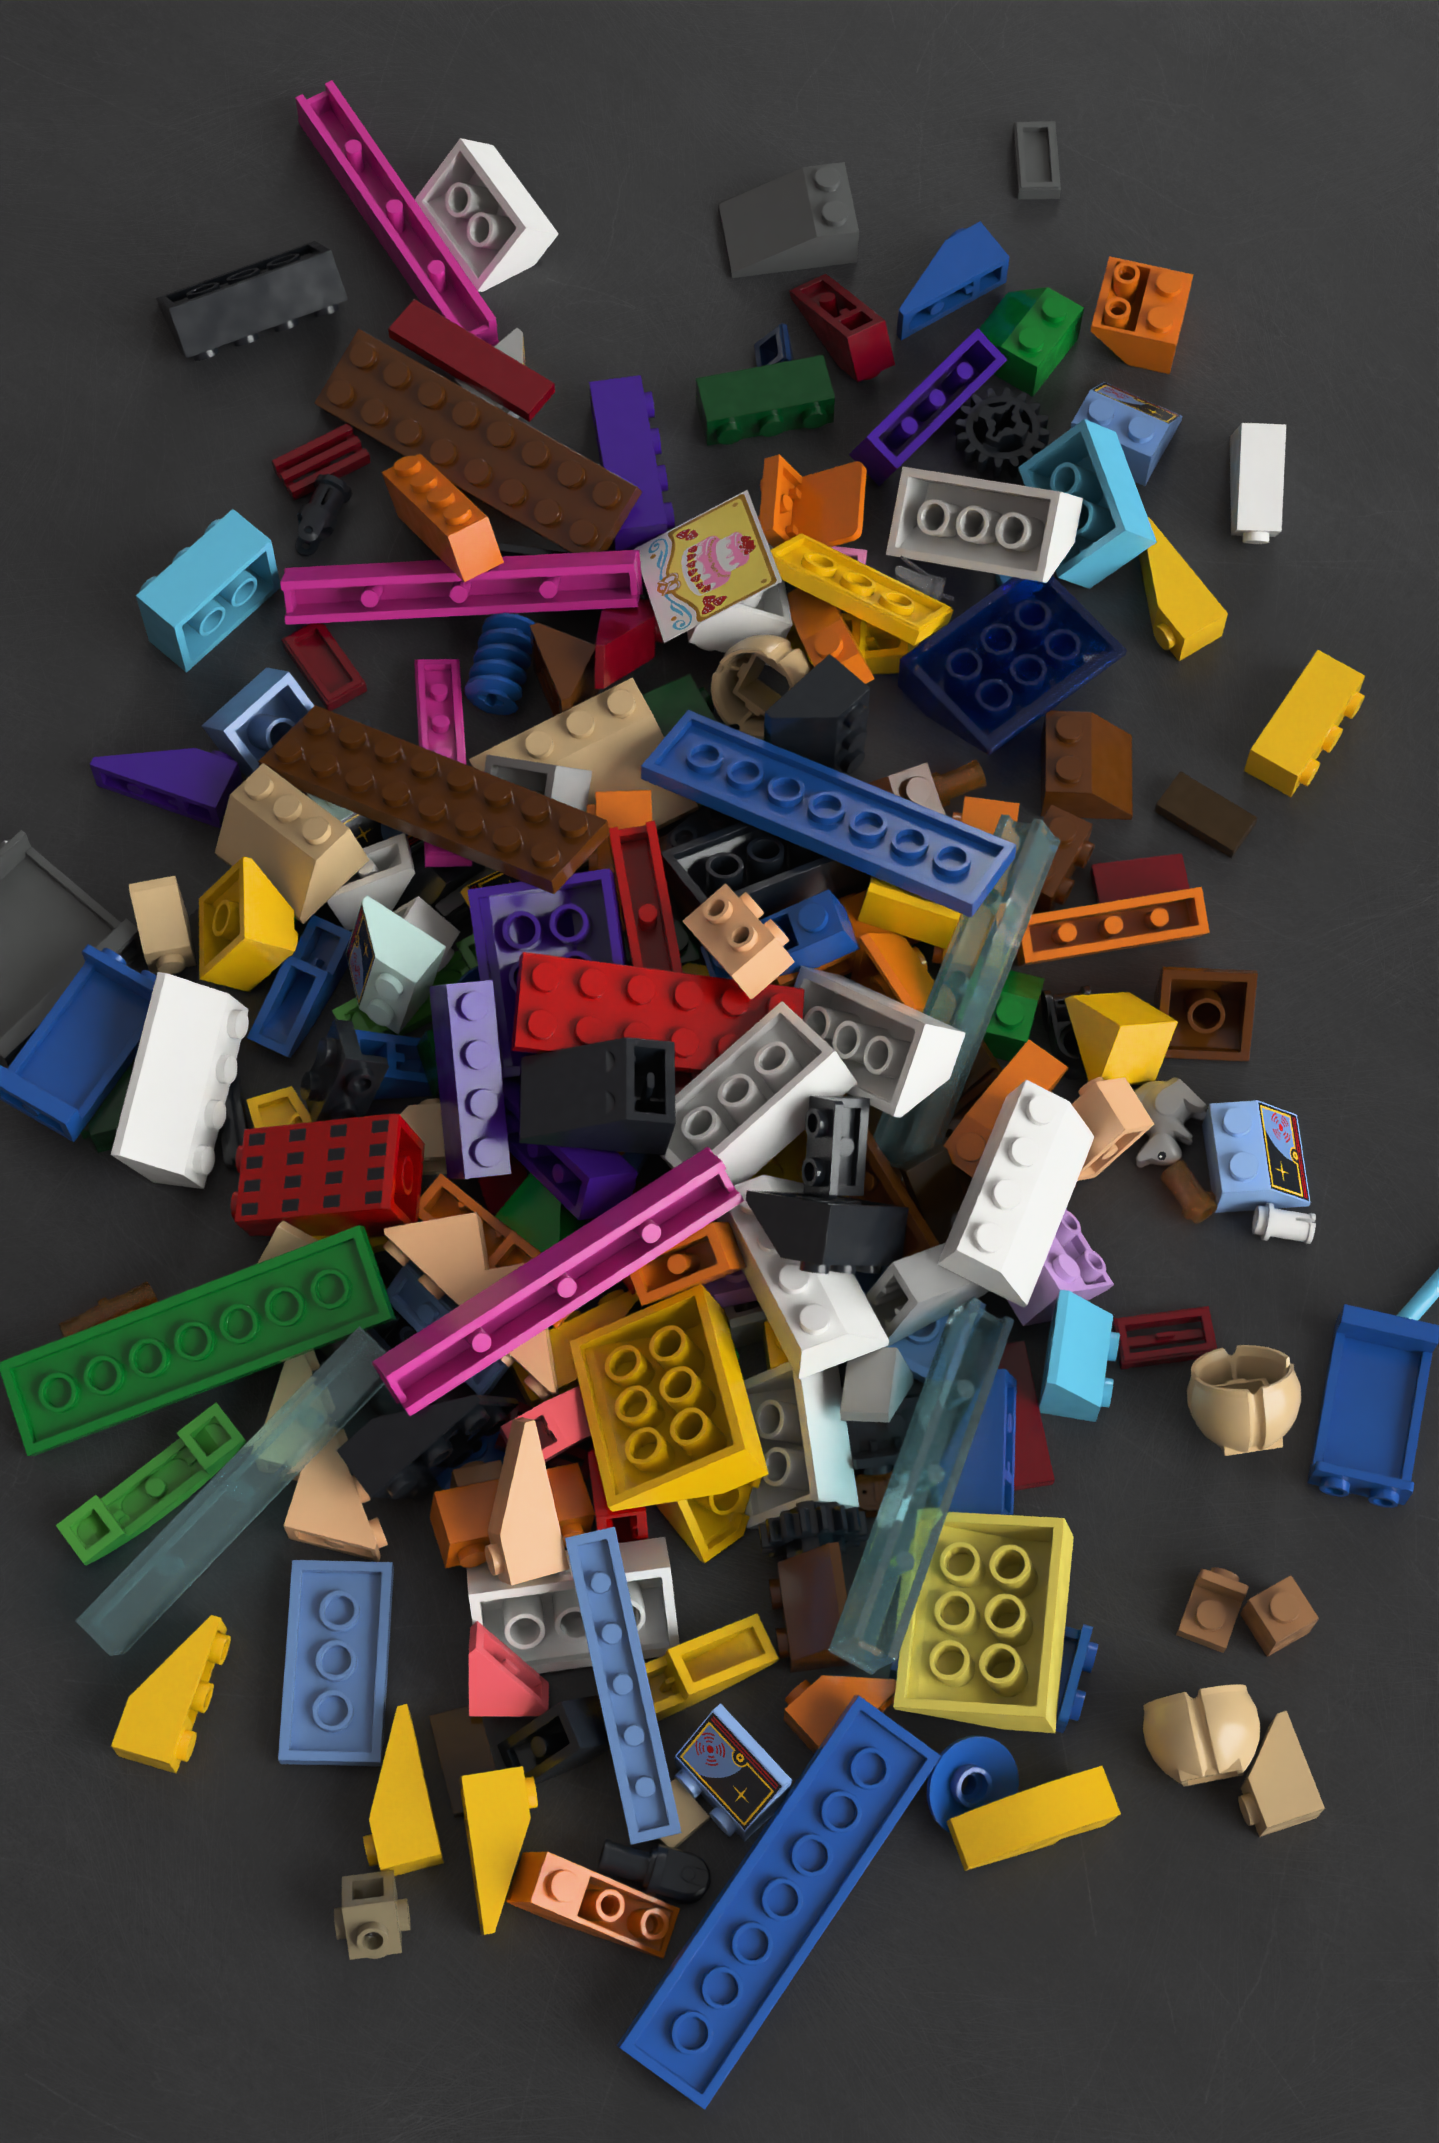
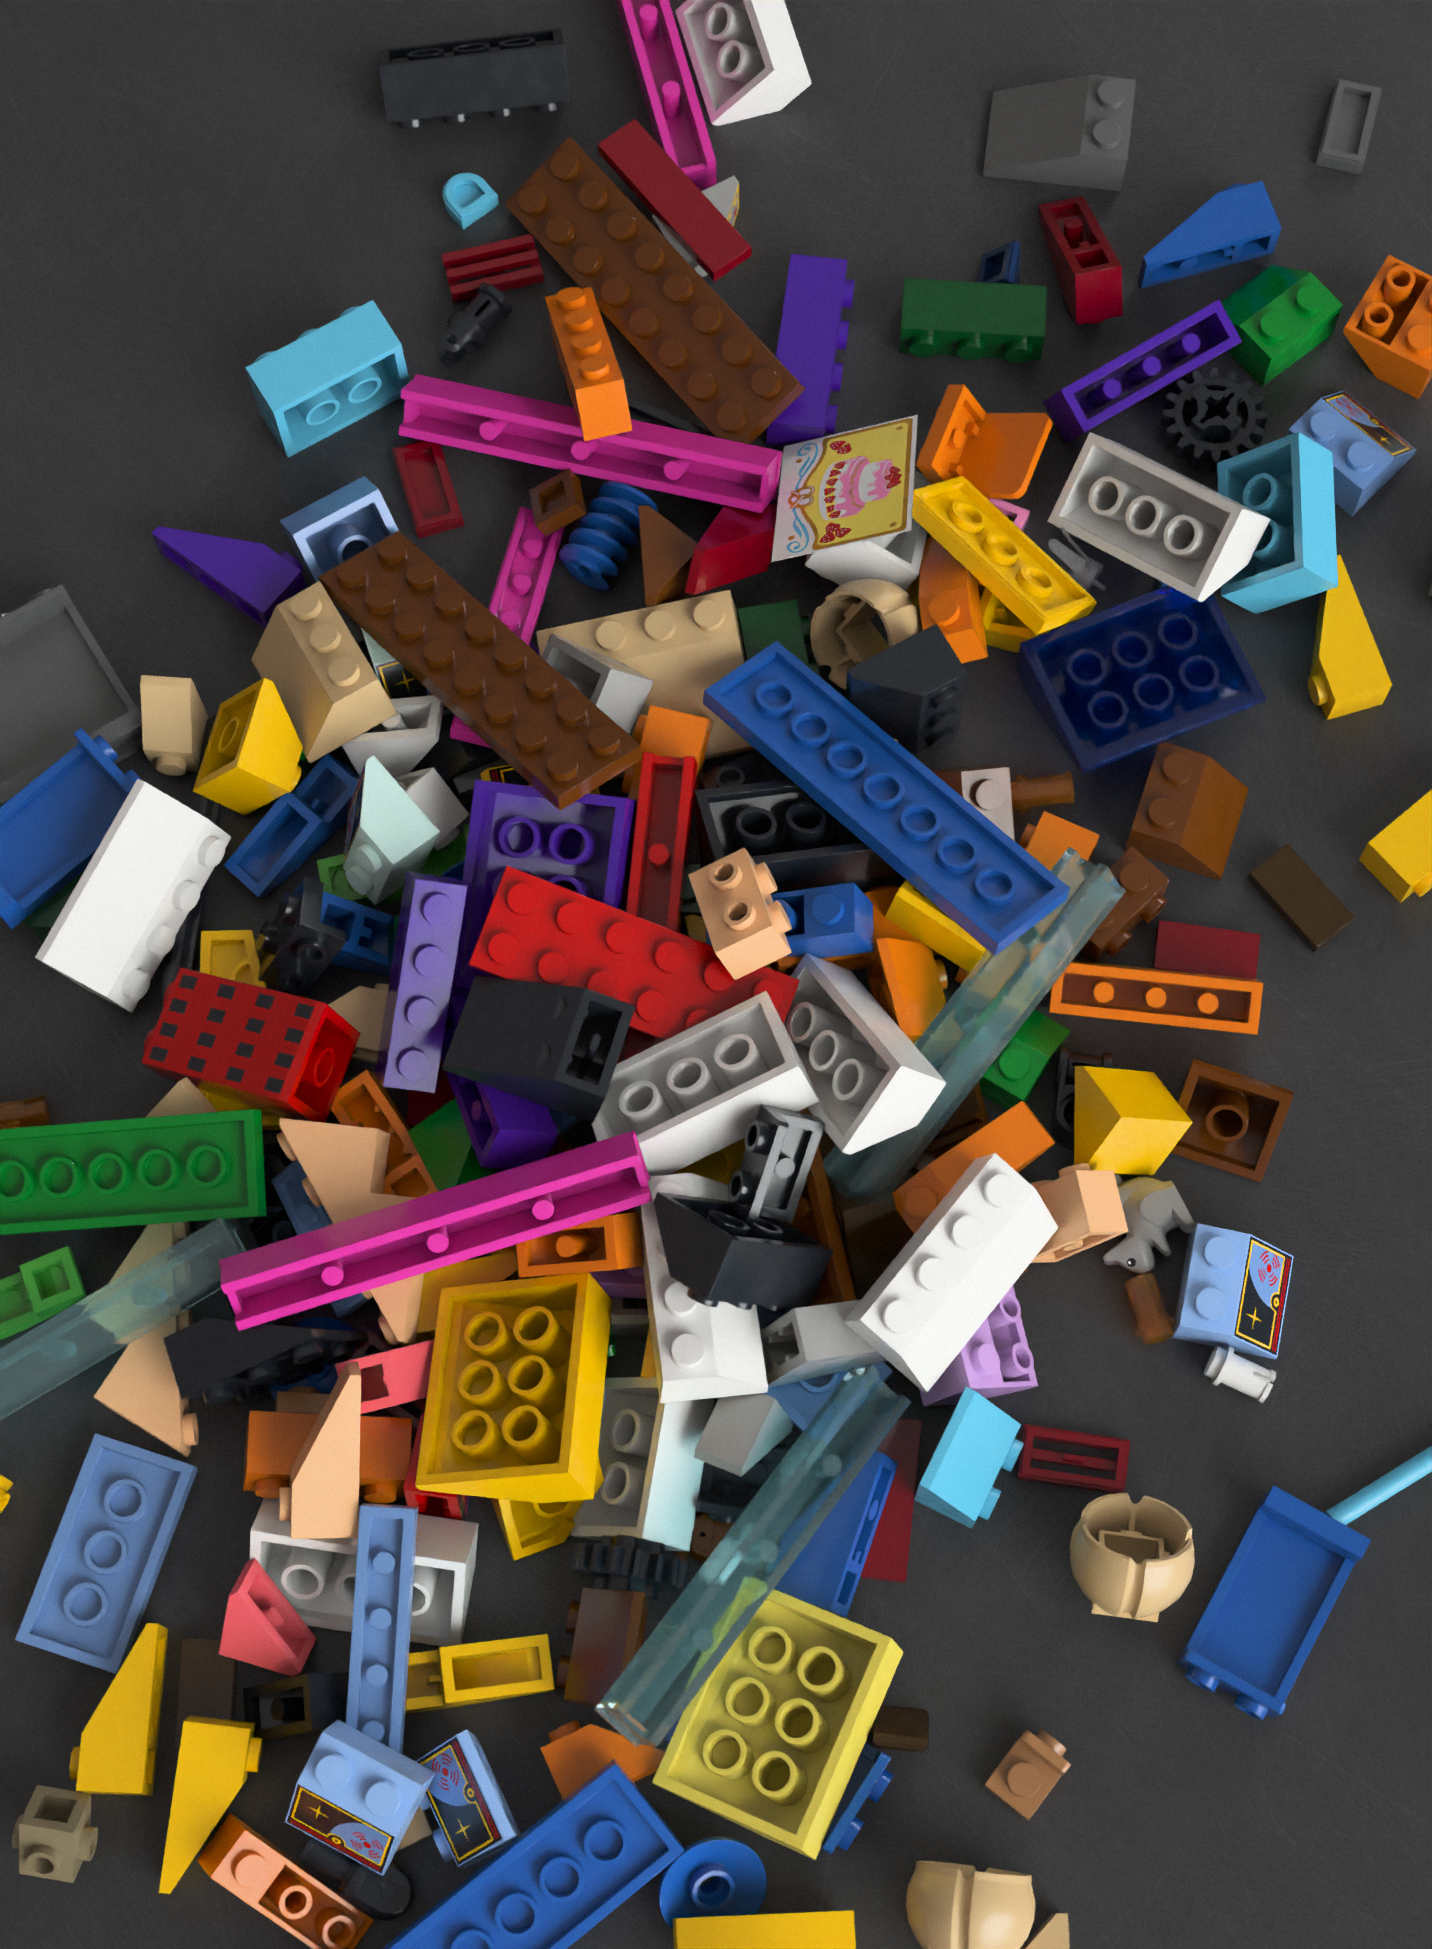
camera: 20 degrees right, 5 degrees up
(279, 407) = (468, 198): none -> medium azure tile
(450, 645) = (557, 502): none -> reddish brown plate
(639, 1795) = (358, 1795): none -> light blue slope
(1092, 1607) = (901, 1729): none -> dark brown slope
(1279, 1616) = (1095, 1803): medium nougat brick -> none

